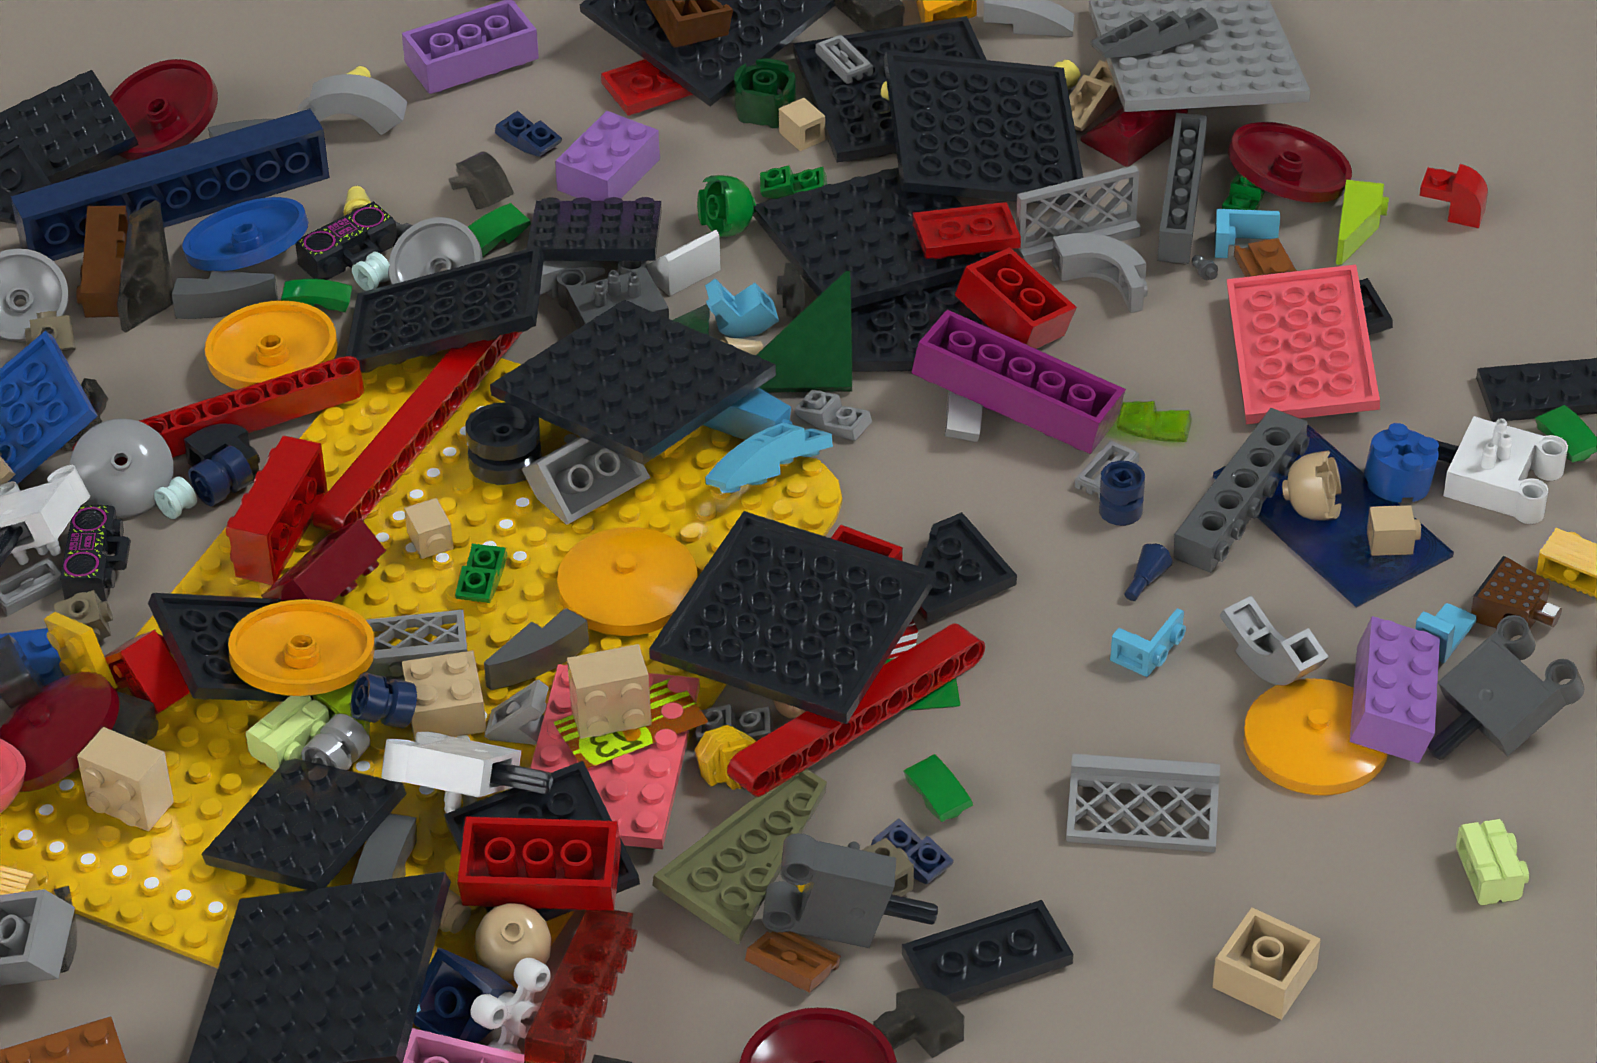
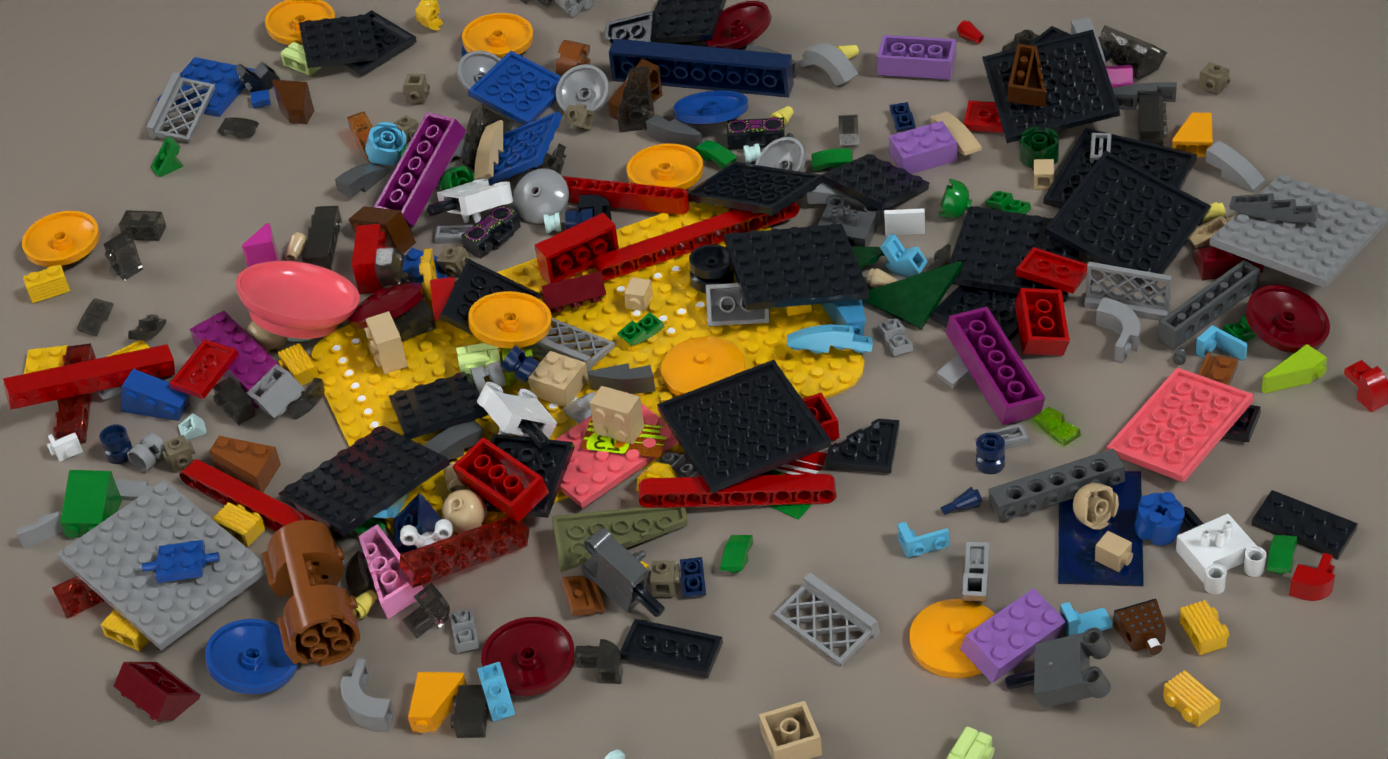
camera: 45 degrees right, 0 degrees up
(670, 127) = (965, 139): none -> tan slope

